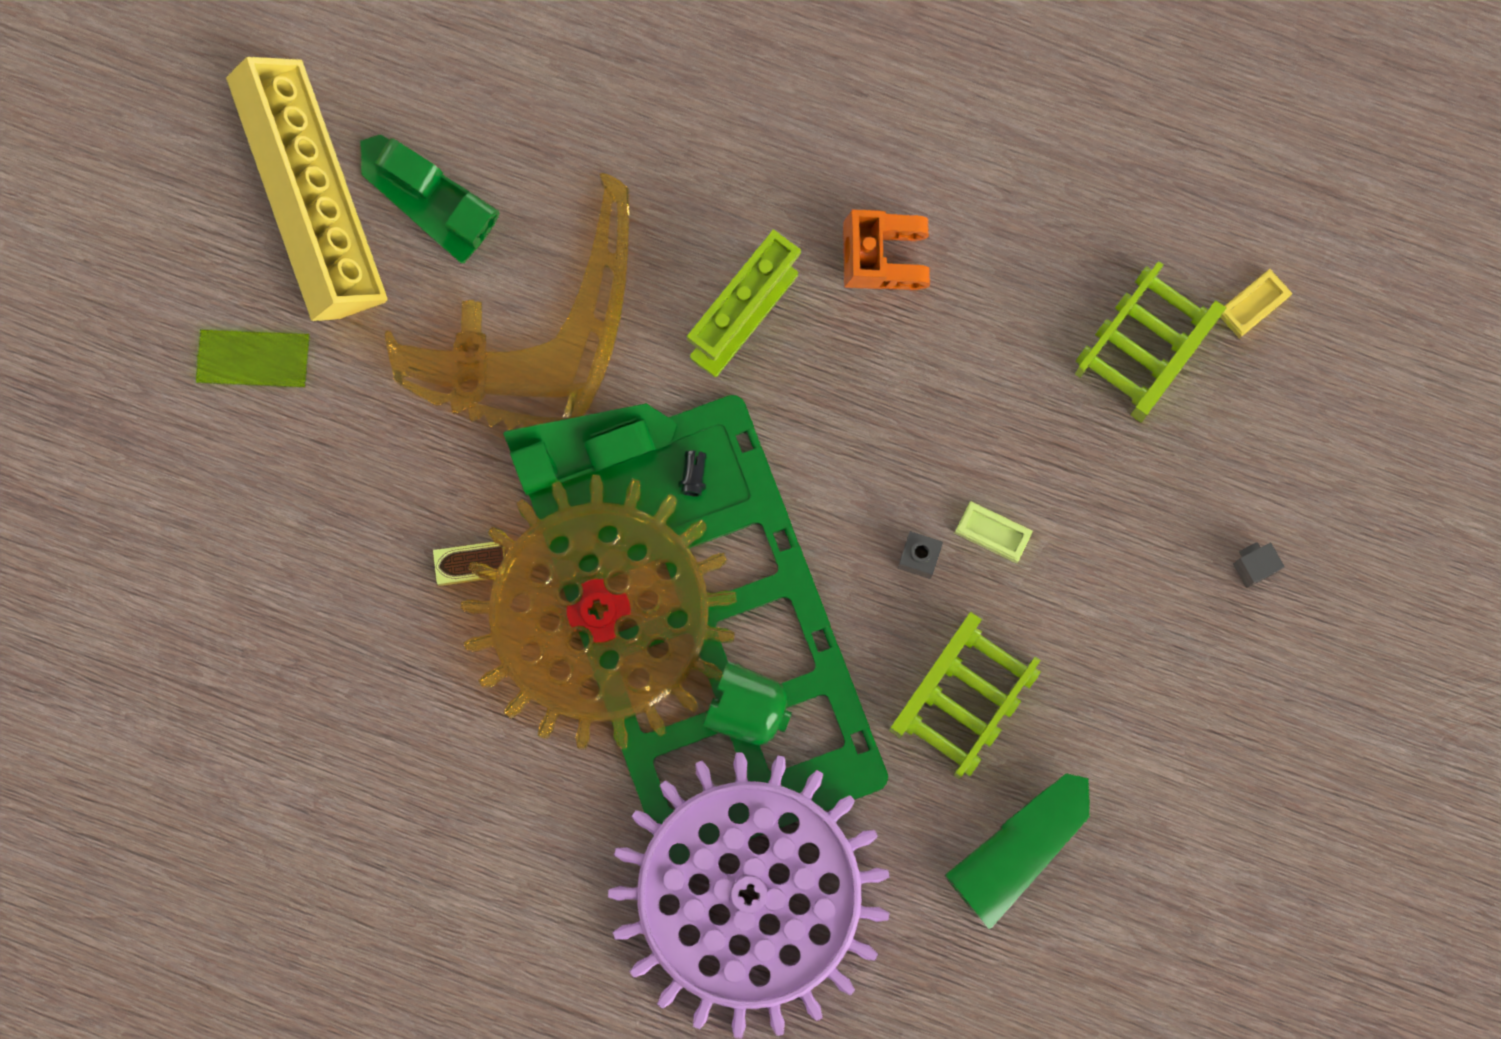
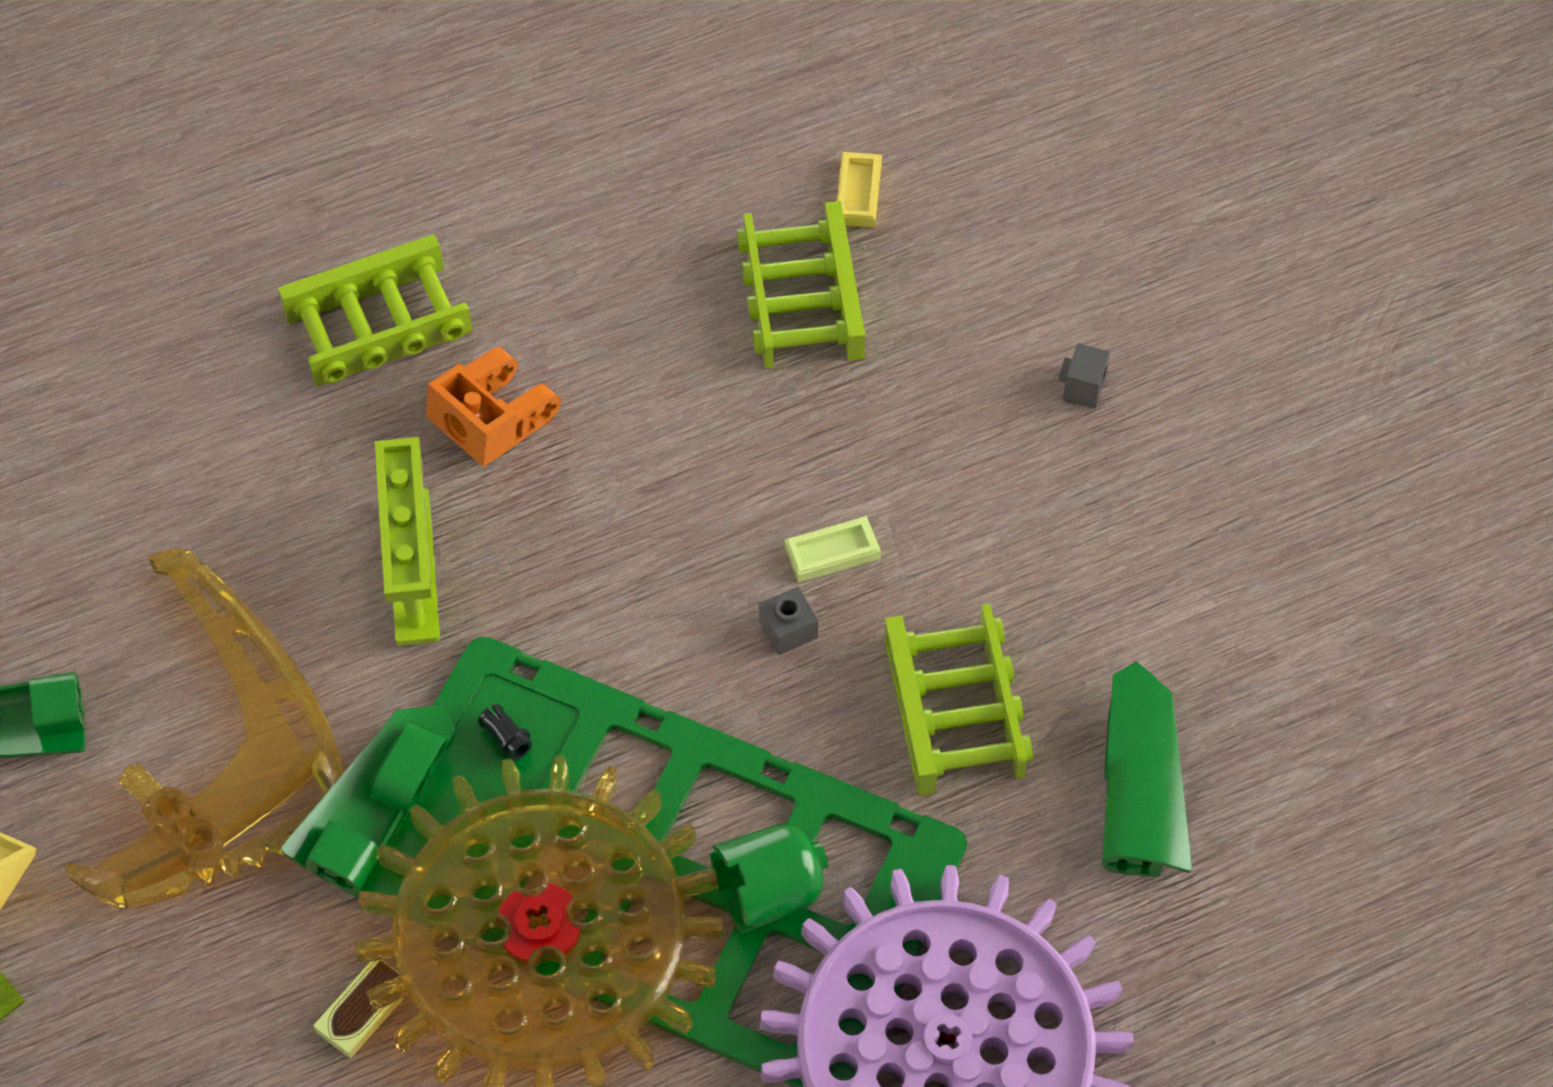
camera: 45 degrees left, 20 degrees down
(877, 89) = (364, 278): none -> lime fence

